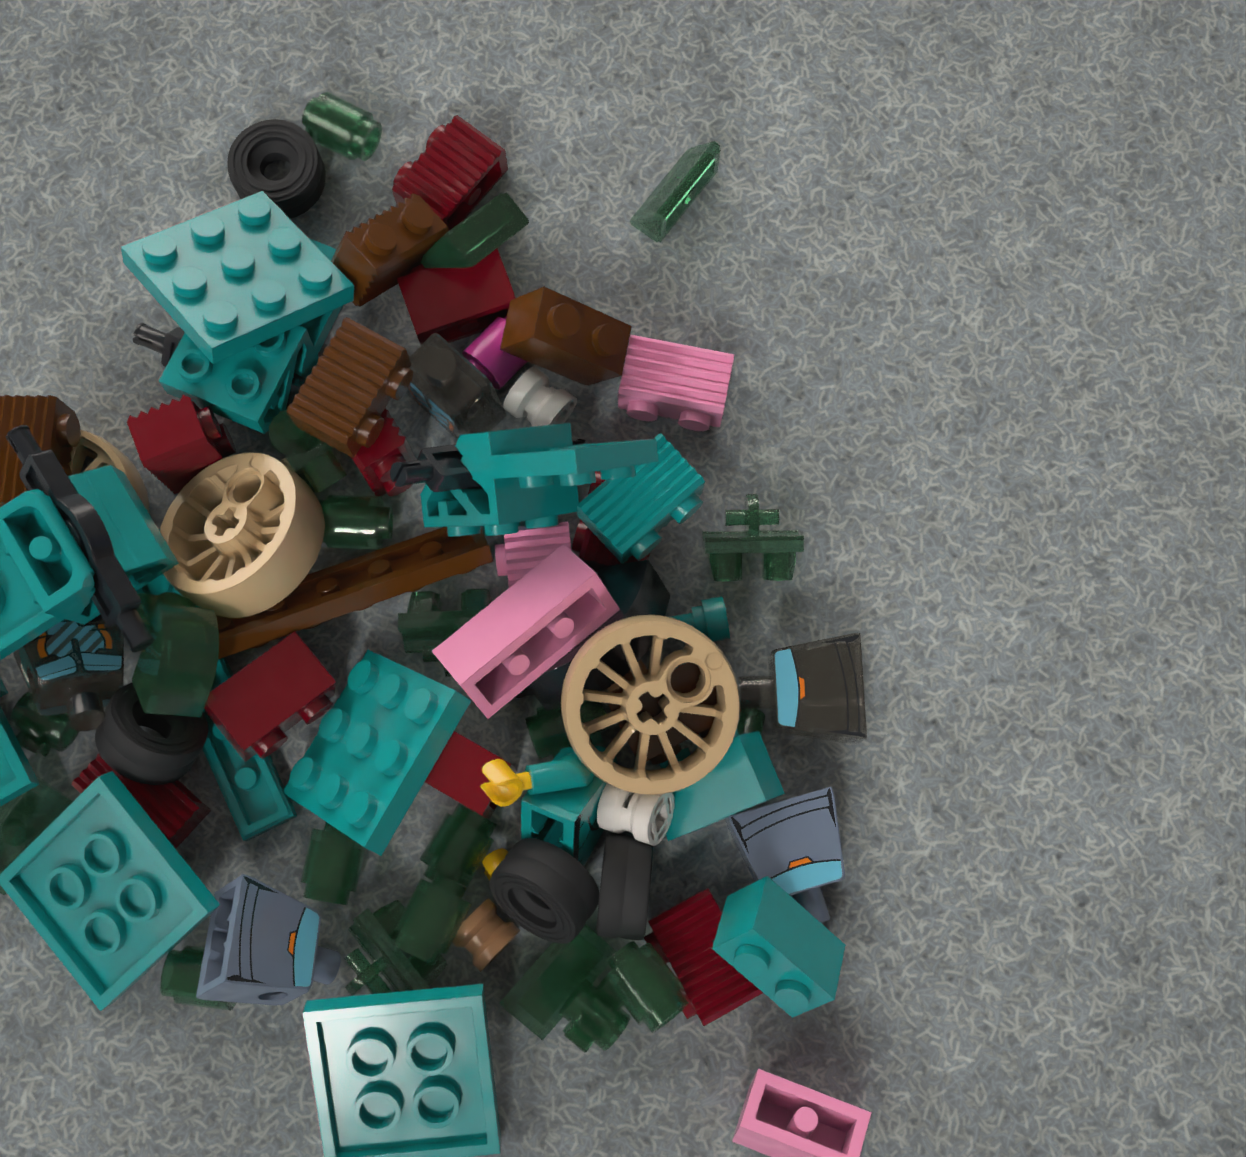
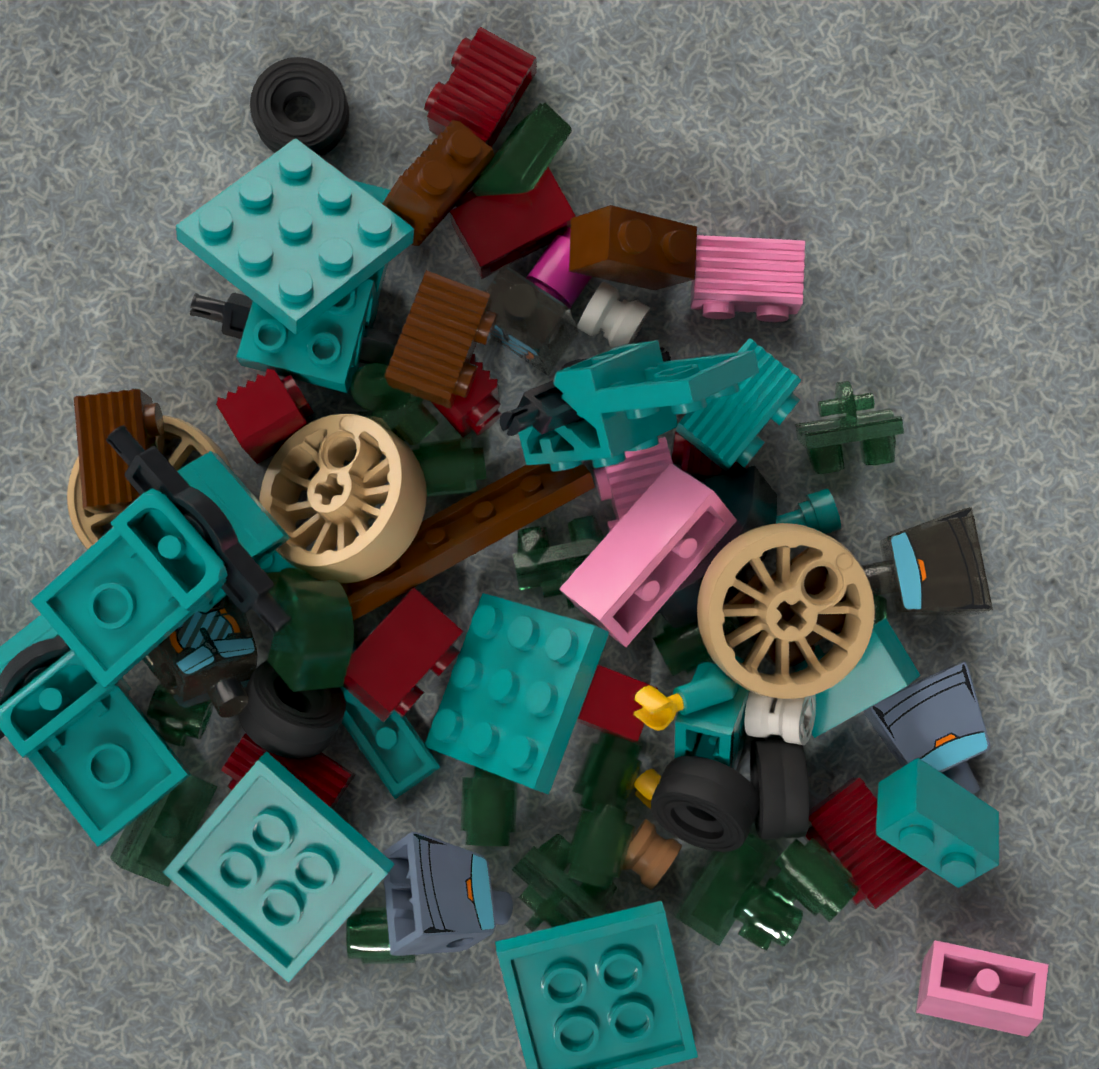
camera: 10 degrees left, 5 degrees up
(341, 126) = (359, 53): clear green brick -> none
(677, 191) = (714, 71): clear green slope -> none

